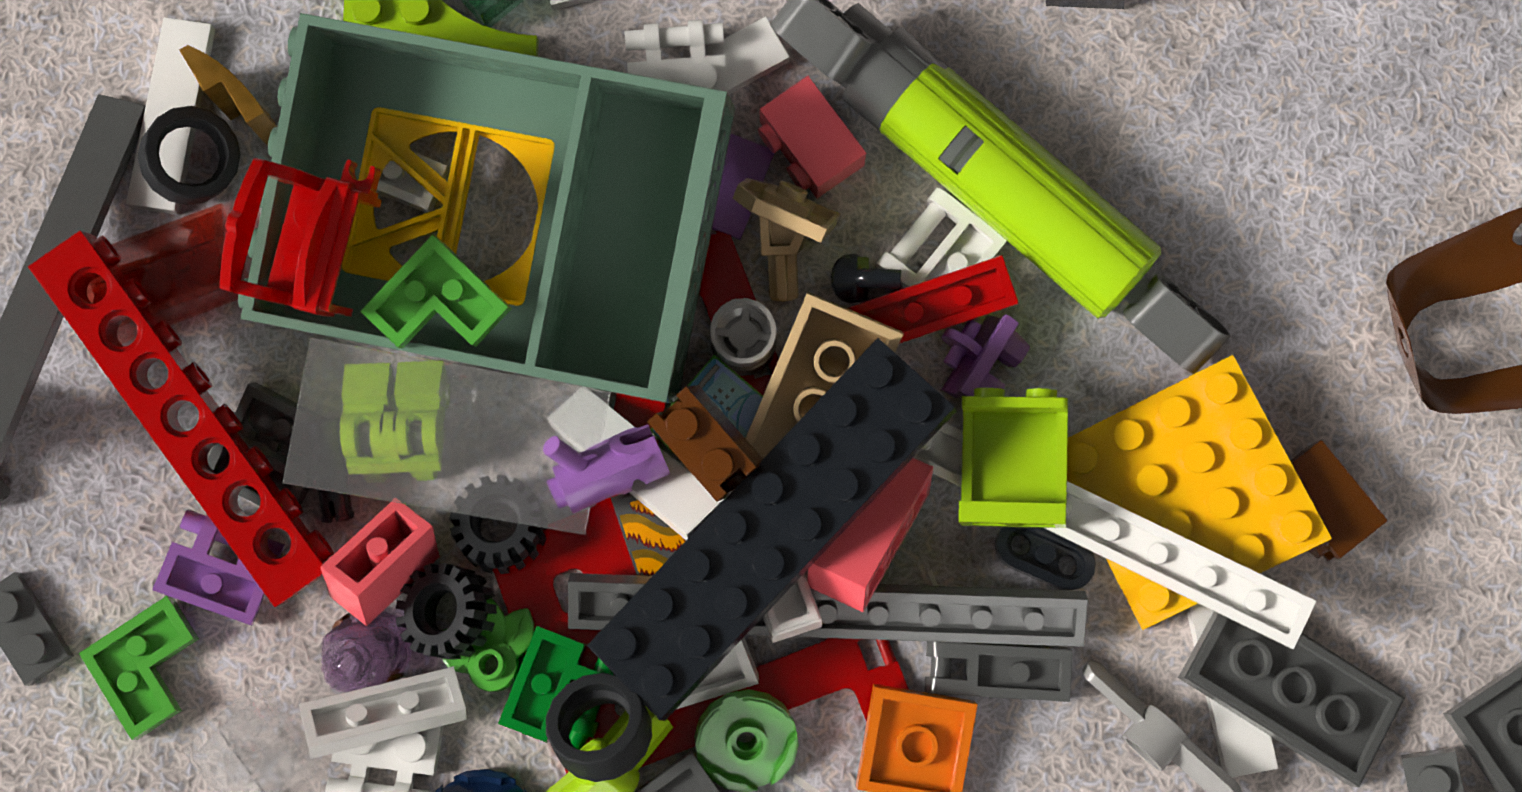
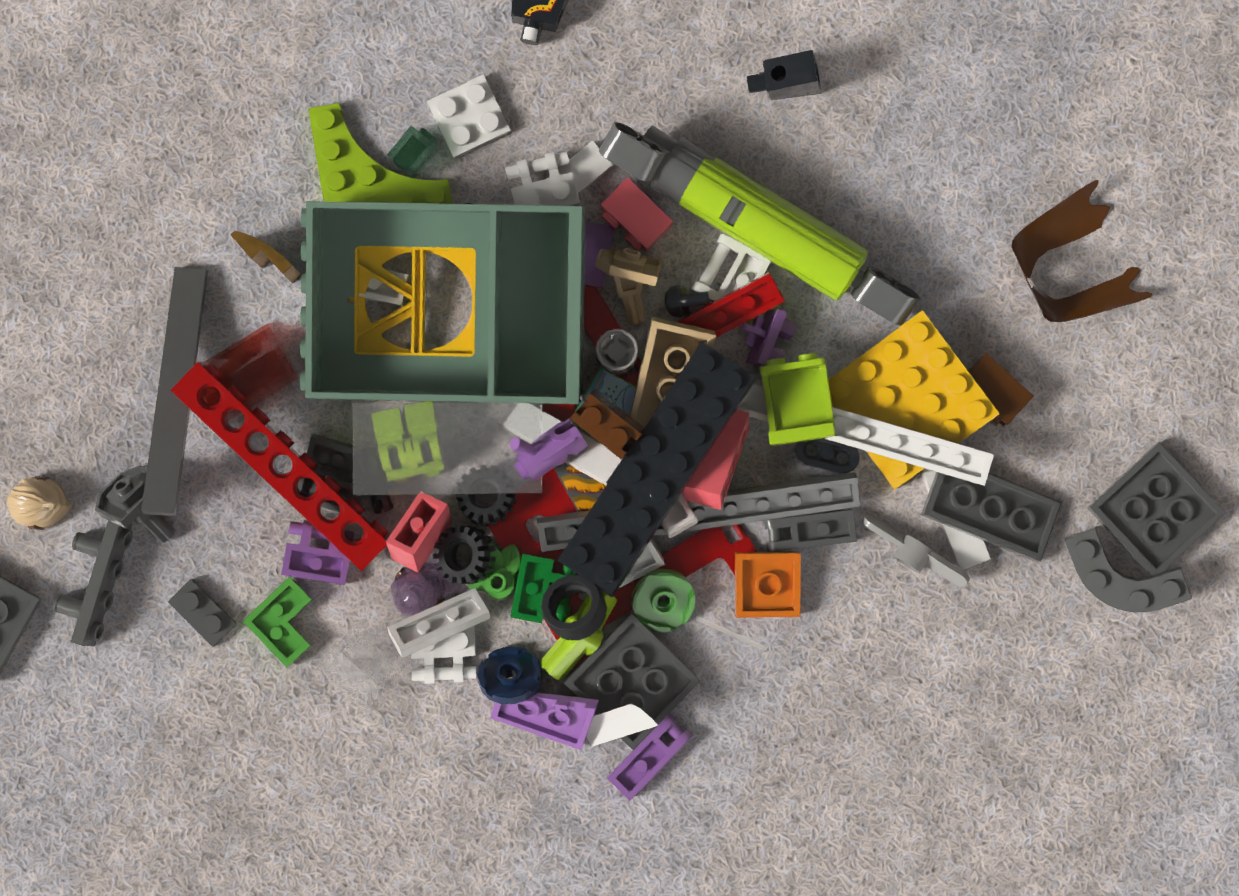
camera: 10 degrees left, 5 degrees up
(171, 87) = (223, 272): white tile -> none
(212, 126) = (266, 290): black tyre -> none
(310, 239) = (343, 346): red animal -> none
(430, 284) = (422, 356): bright green plate -> none

